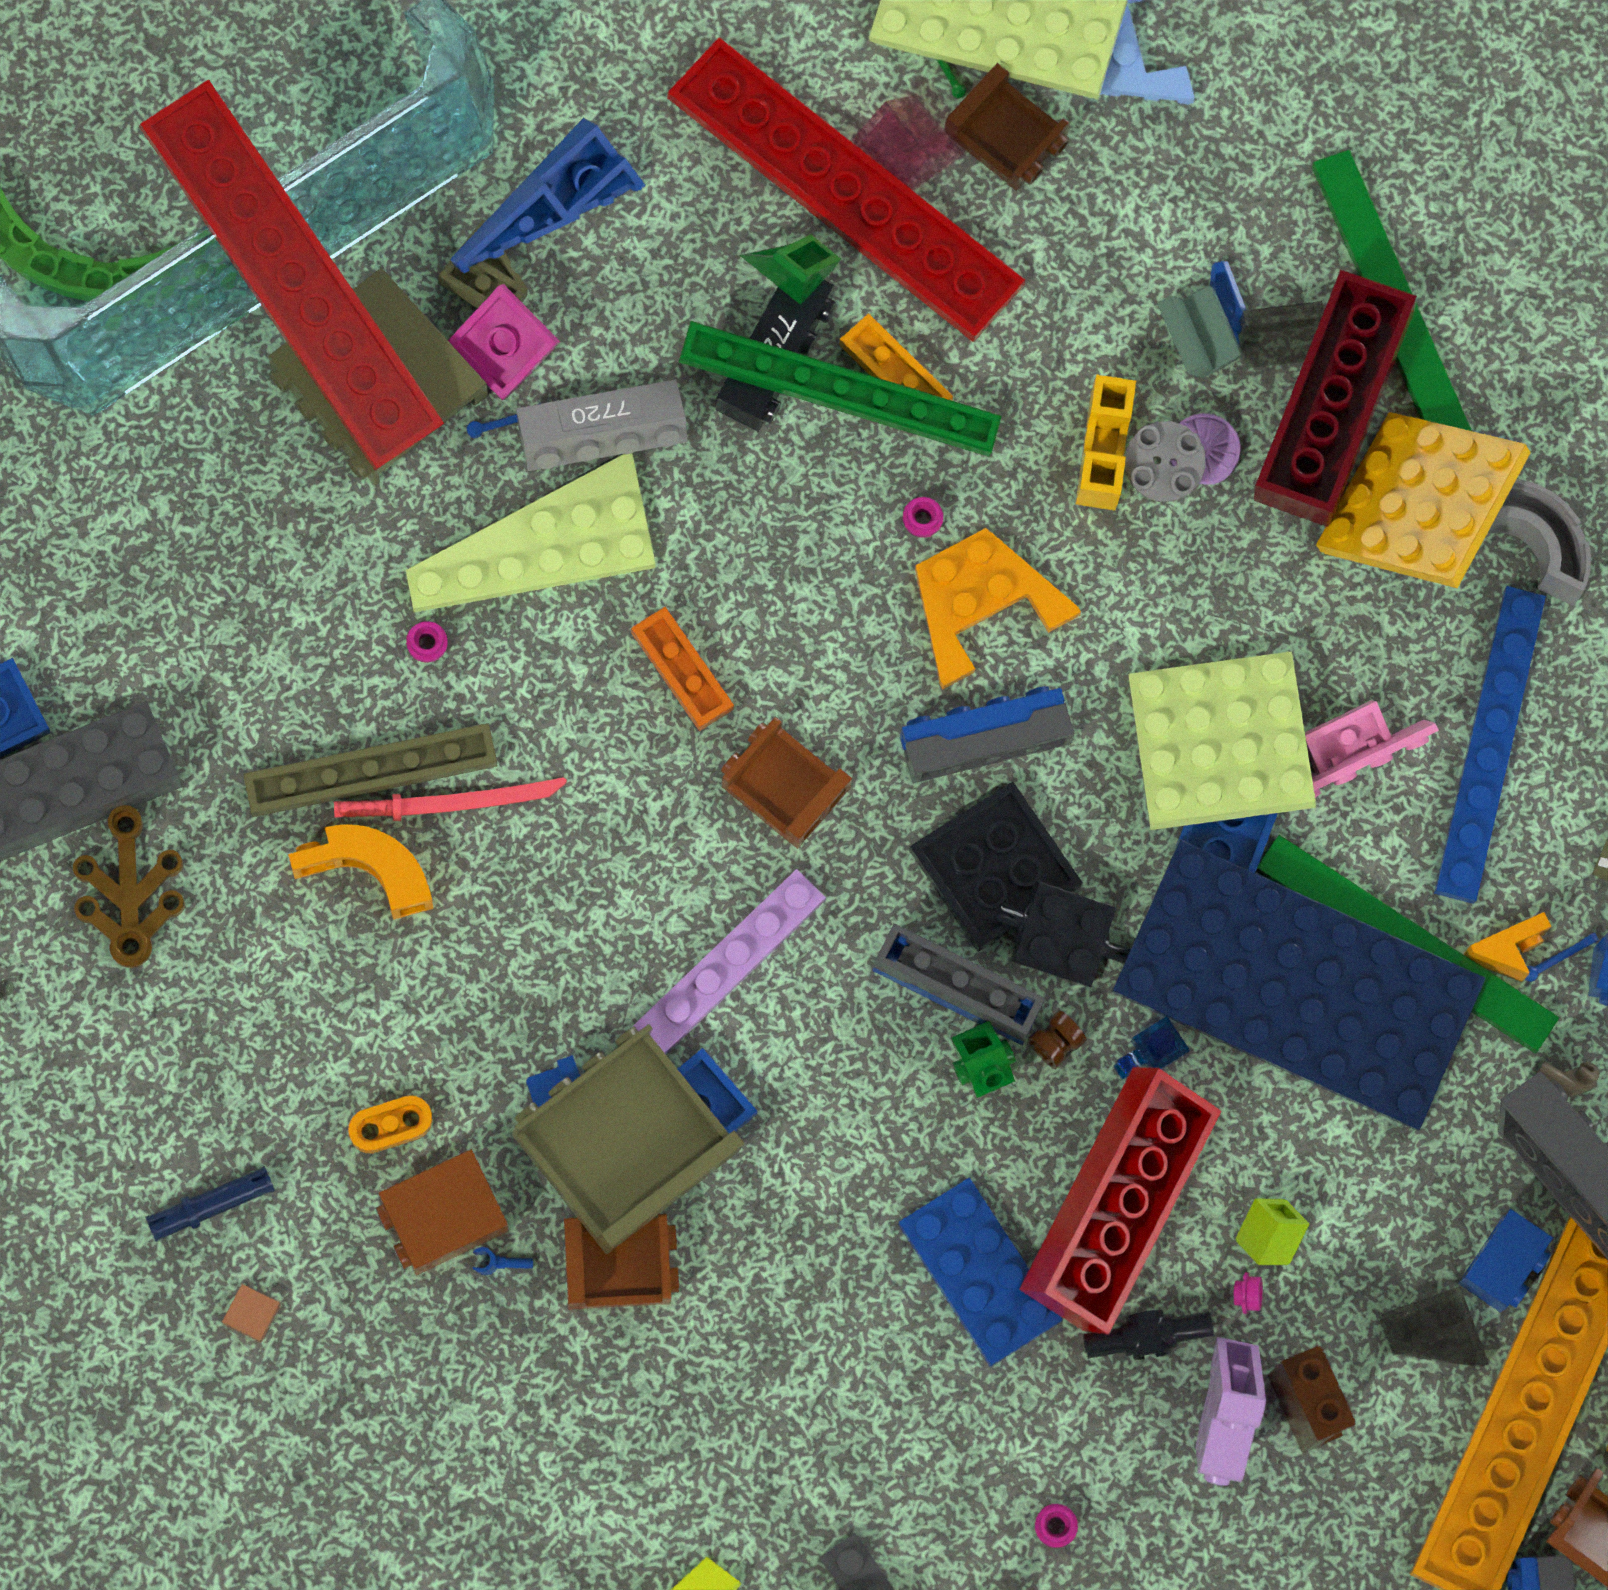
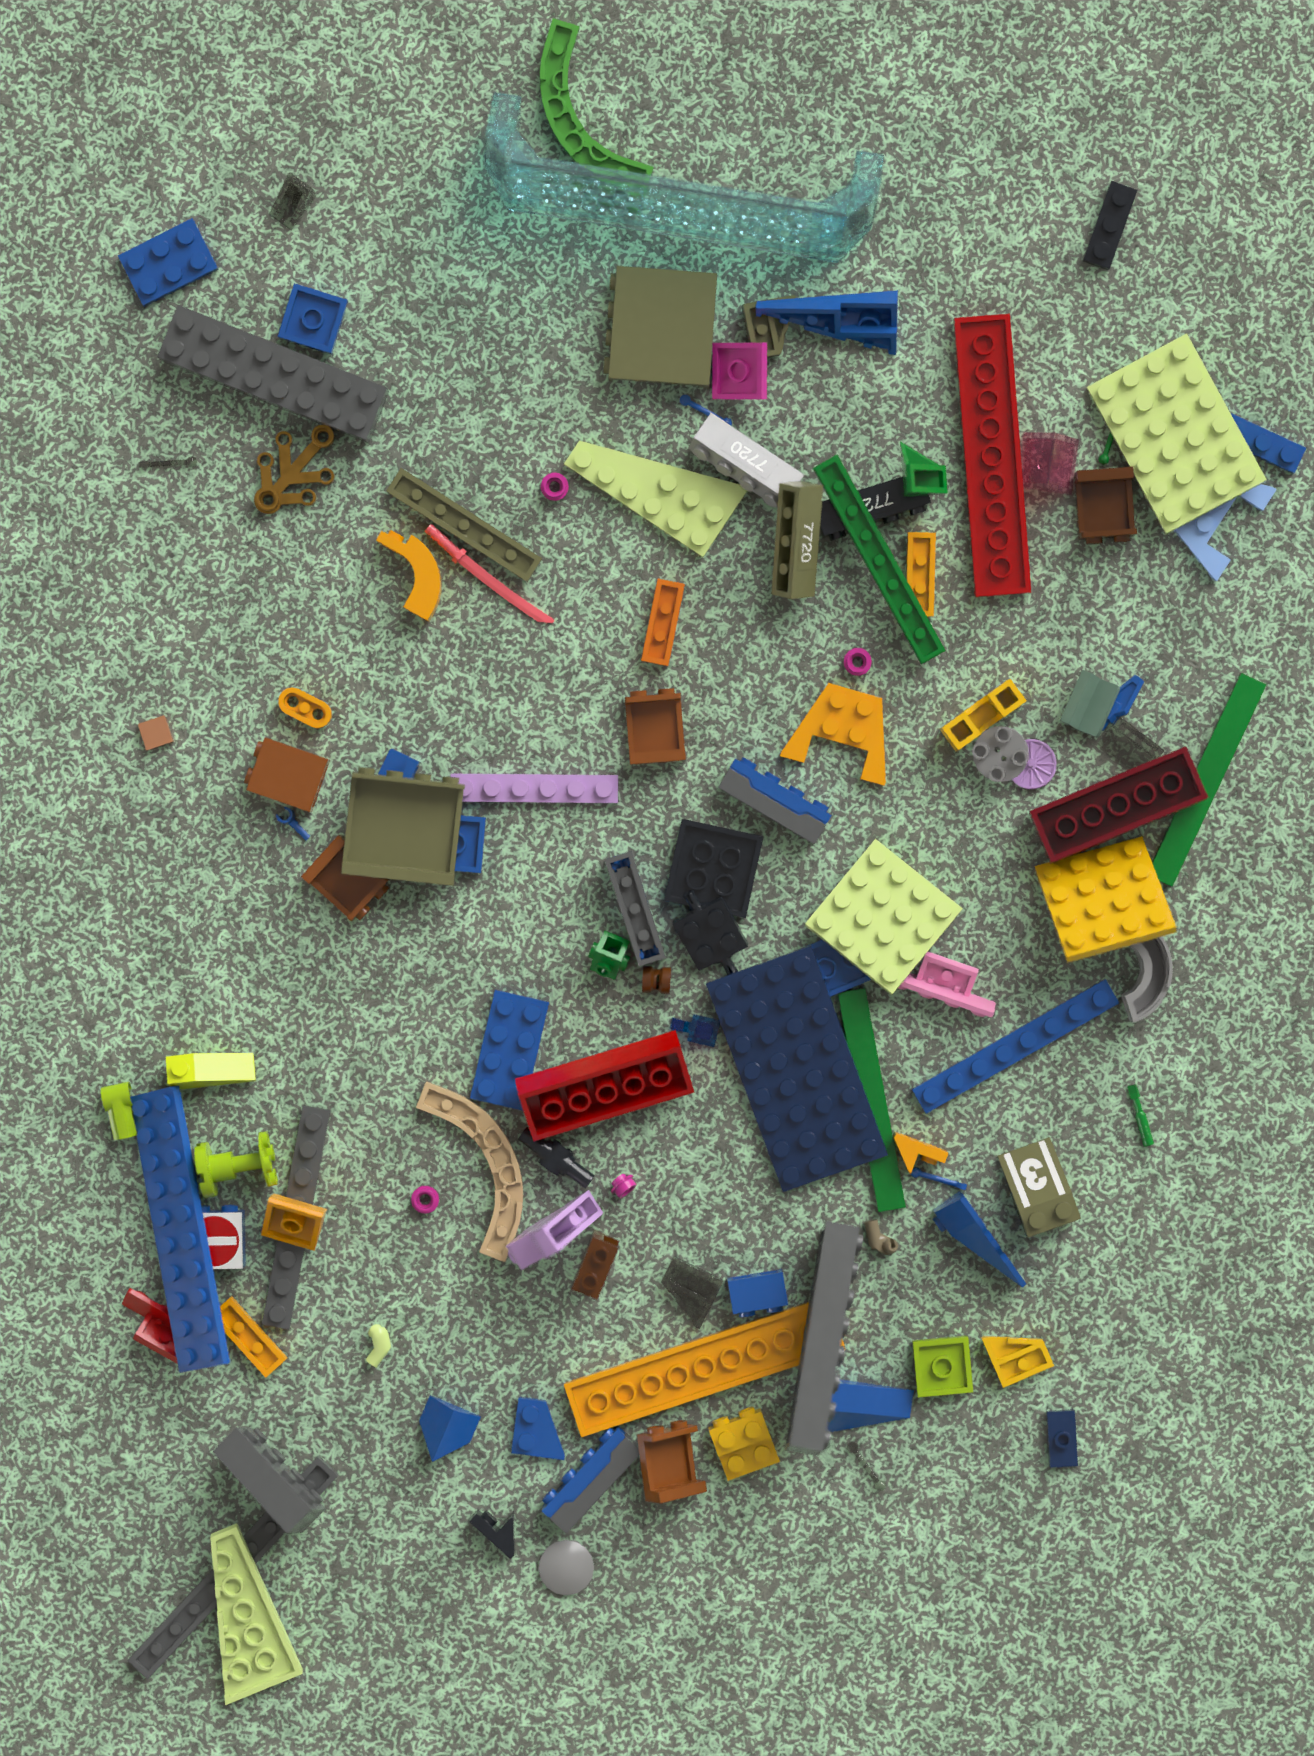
camera: 55 degrees right, 15 degrees up
(209, 1204) = (174, 658): dark blue pin -> none
(291, 274) = (658, 240): red plate -> none
(736, 446) = (797, 539): none -> olive brick
(1089, 1396) = (500, 1157): none -> tan plate
(1272, 1231) = (663, 1168): lime panel -> none

